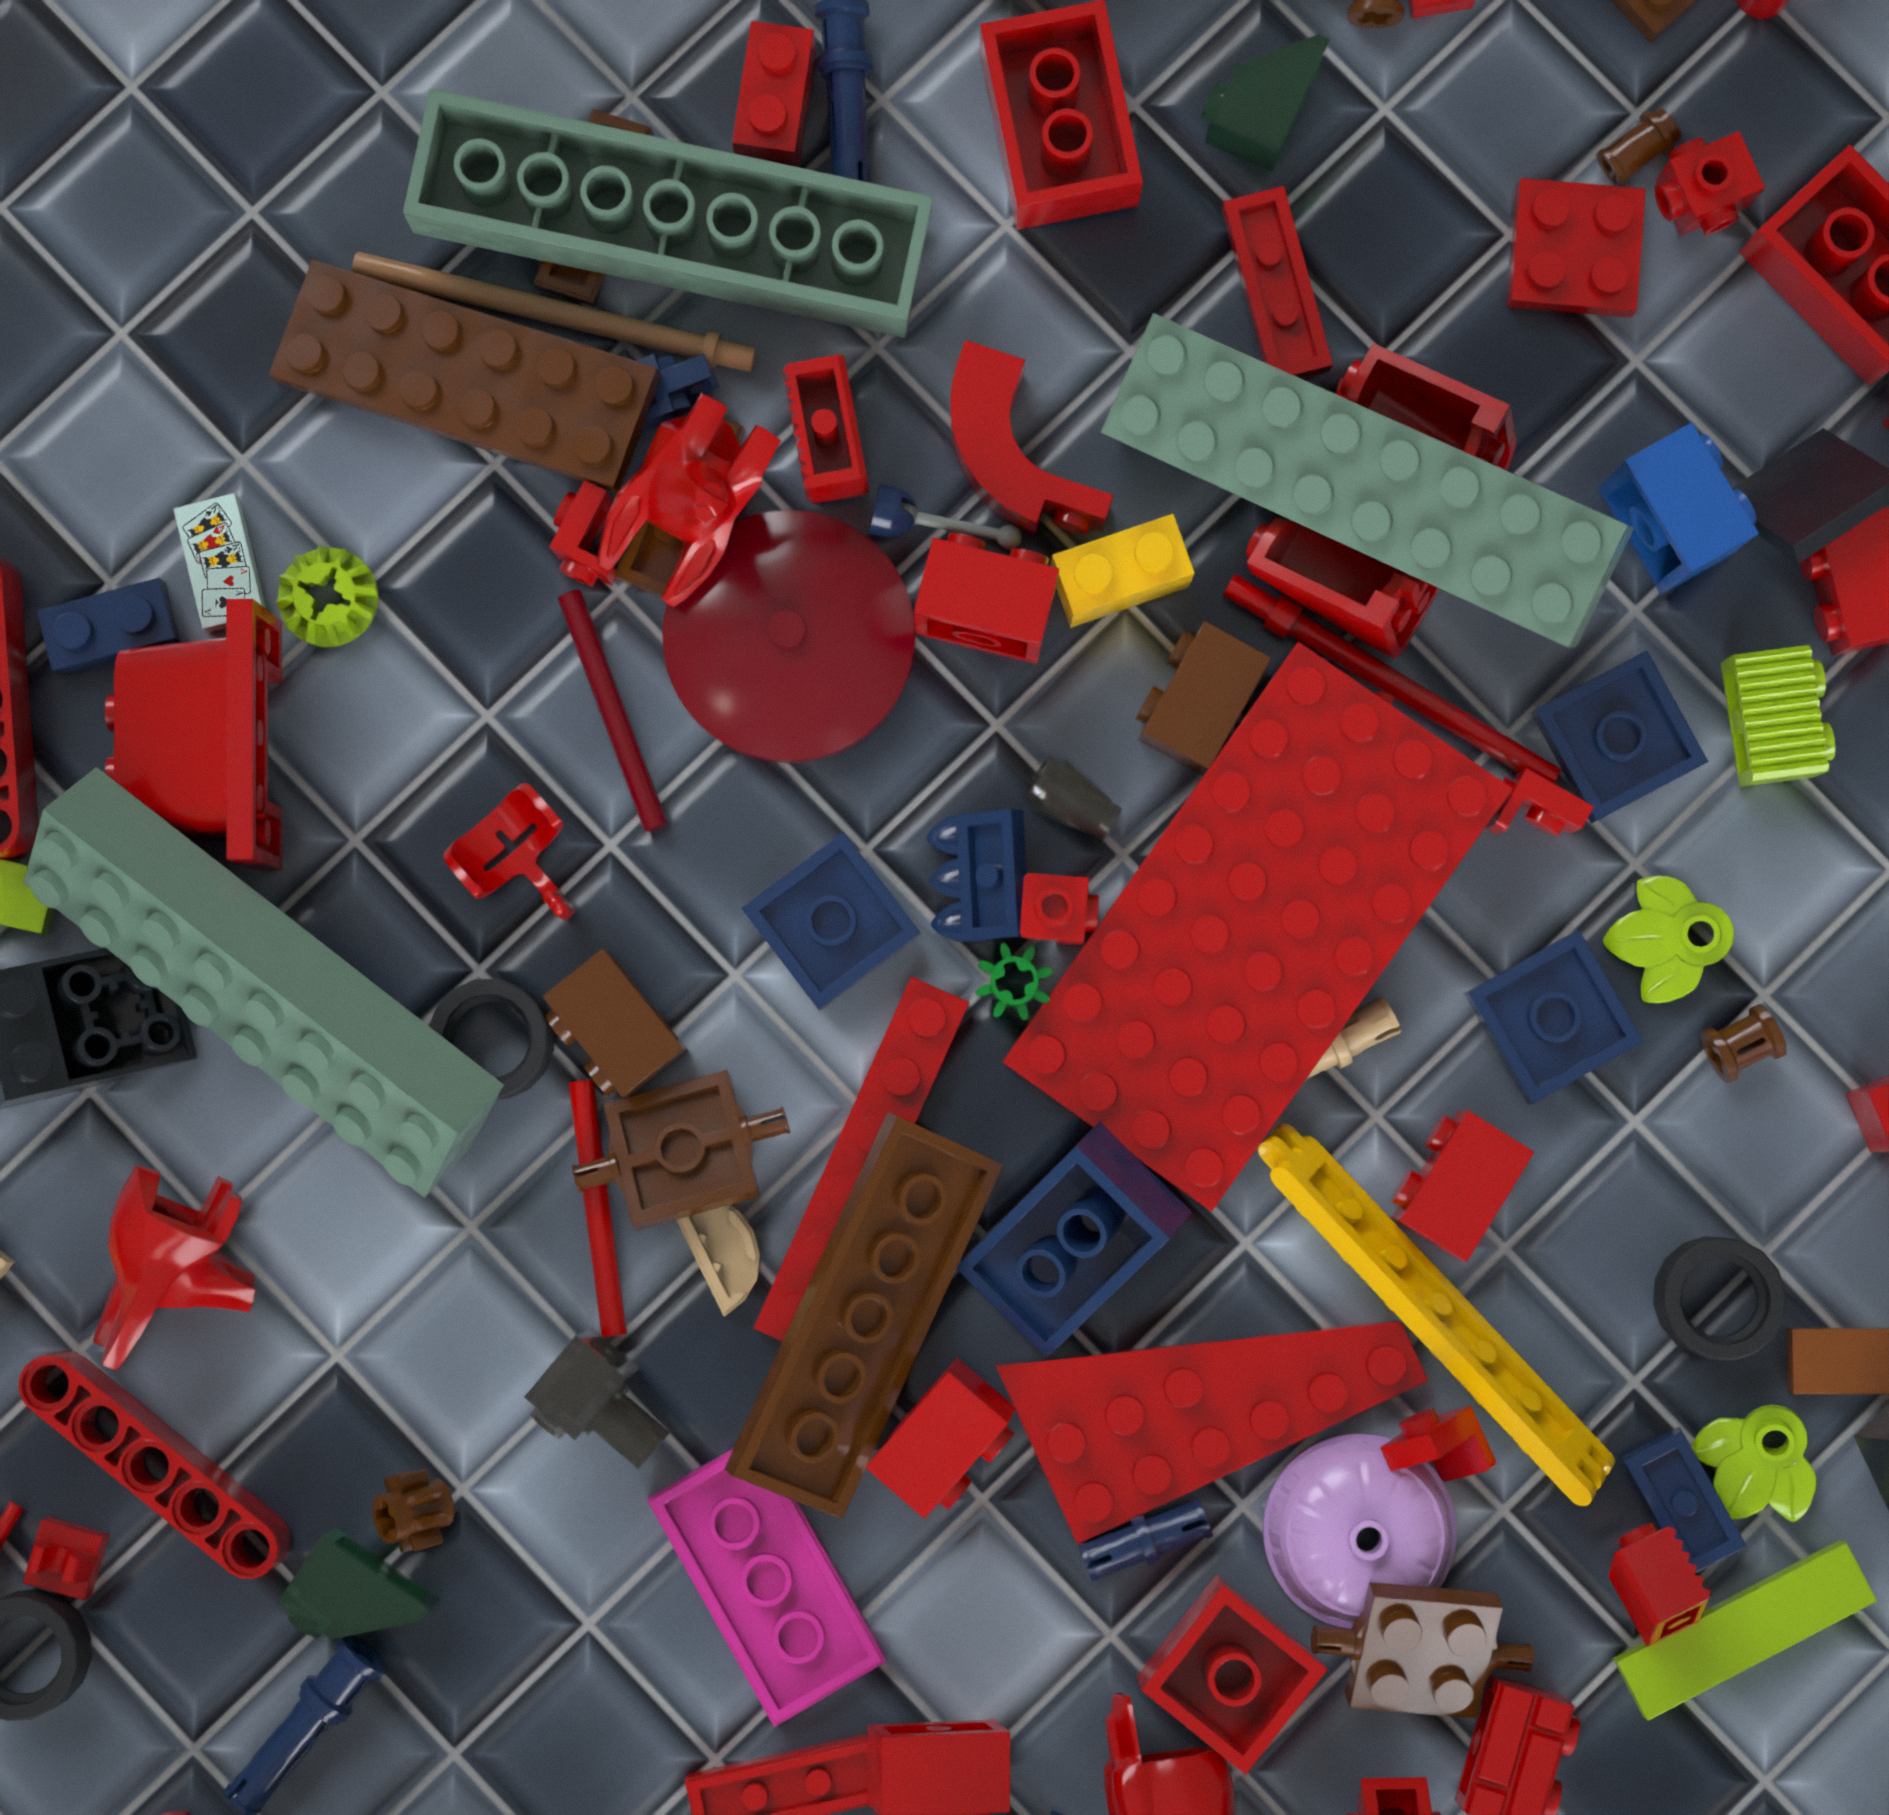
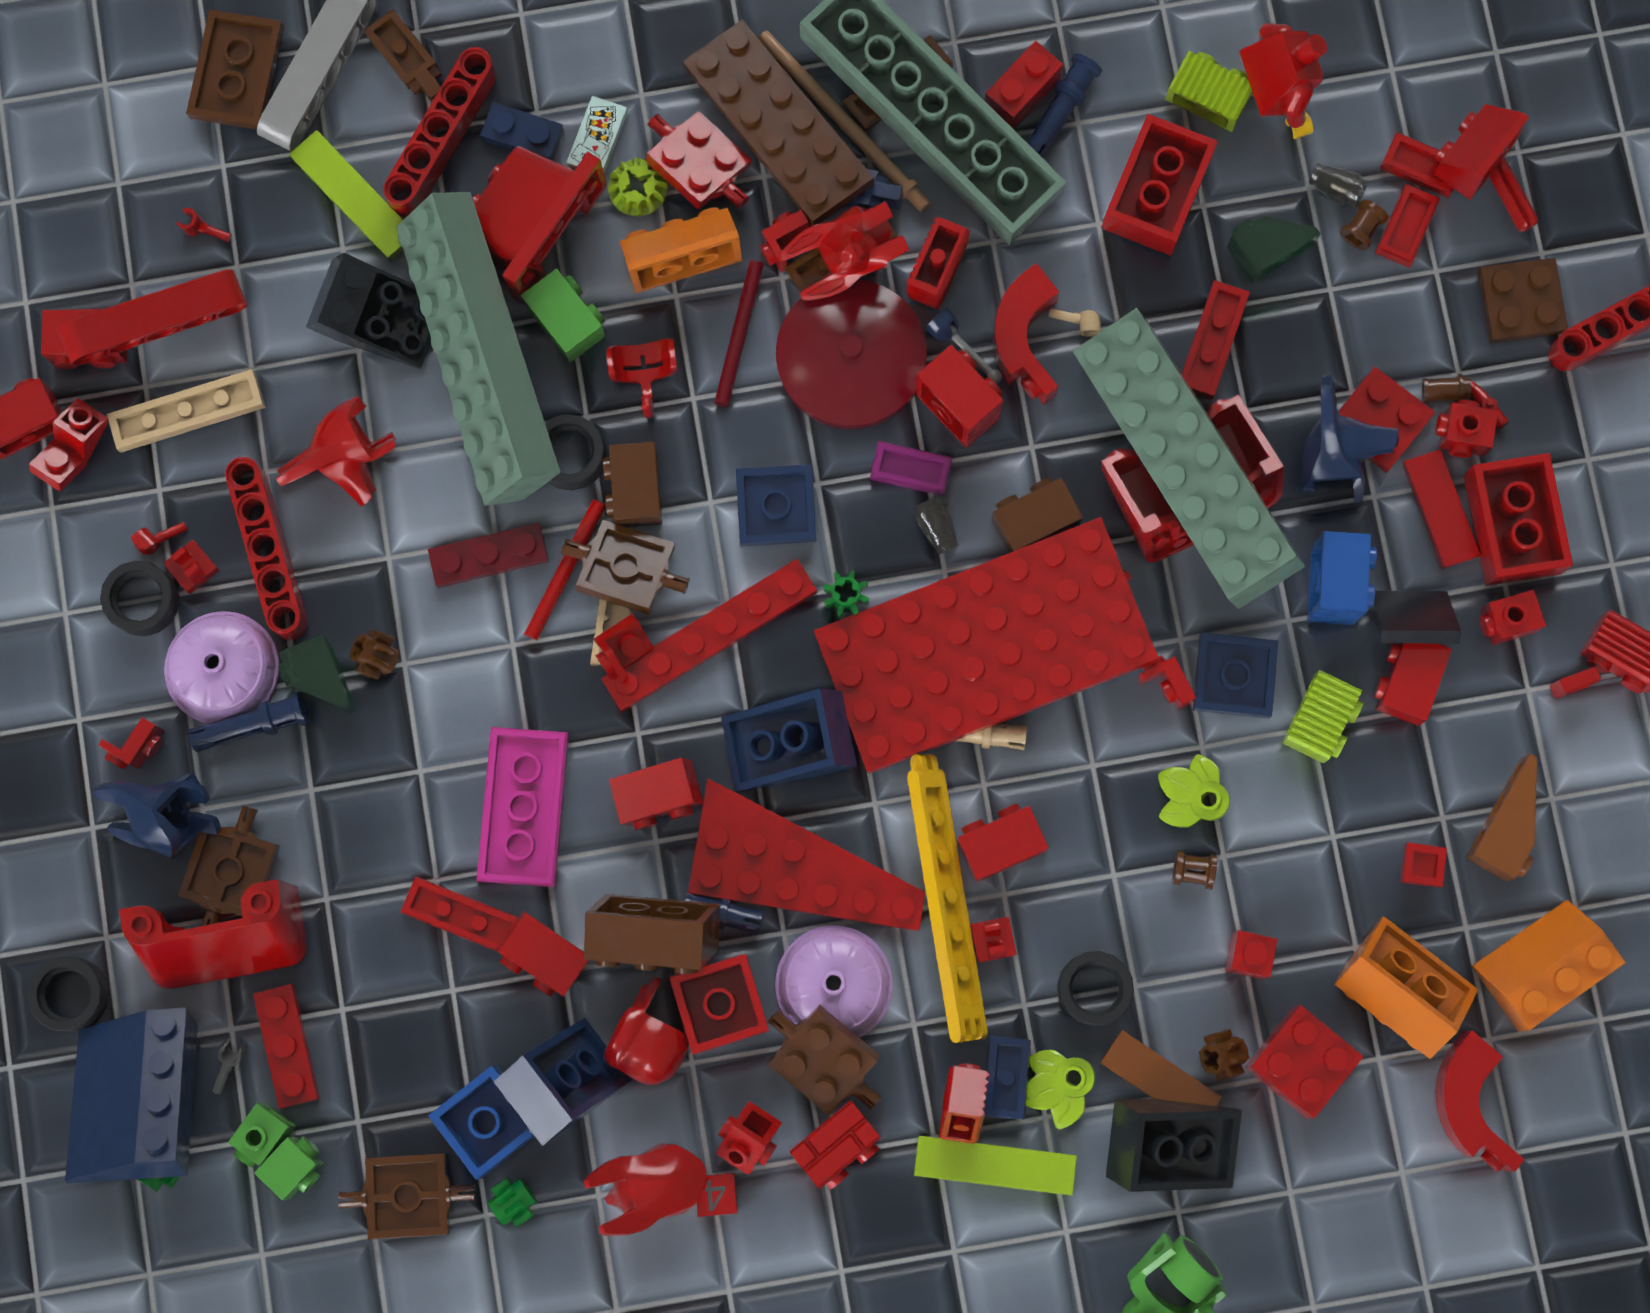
camera: 35 degrees right, 5 degrees down
(238, 1644) = (244, 673): none -> lavender hat
(348, 849) = (564, 315): none -> bright green brick
(388, 503) = (698, 160): none -> plate
(451, 645) = (681, 249): none -> orange slope
(475, 1260) = (488, 555): none -> dark red plate
(588, 1394) = (500, 650): clear smoke brick -> none
(754, 1266) = (622, 646): none -> red bracket
(863, 1317) = (659, 707): reddish brown plate -> none
(981, 742) = (911, 468): none -> magenta tile
(984, 876) = (867, 534): dark blue plate -> none
(1058, 909) = (892, 571): red bracket -> none
(1074, 1644) = (651, 933): none -> reddish brown brick
(1087, 372) = (1089, 320): none -> tan hand
(1122, 570) = (1038, 427): yellow brick -> none
(1285, 617) = (1106, 506): red bar -> none
(1448, 1439) = (911, 965): red bracket -> none
(1534, 1323) = (993, 939): none -> red tile
(1553, 1017) = (1106, 792): dark blue plate -> none
(1556, 322) = (1340, 445): none -> dark blue piece
(1708, 128) = (1485, 401): none -> red helmet
(1741, 319) = (1441, 509): none -> red tile

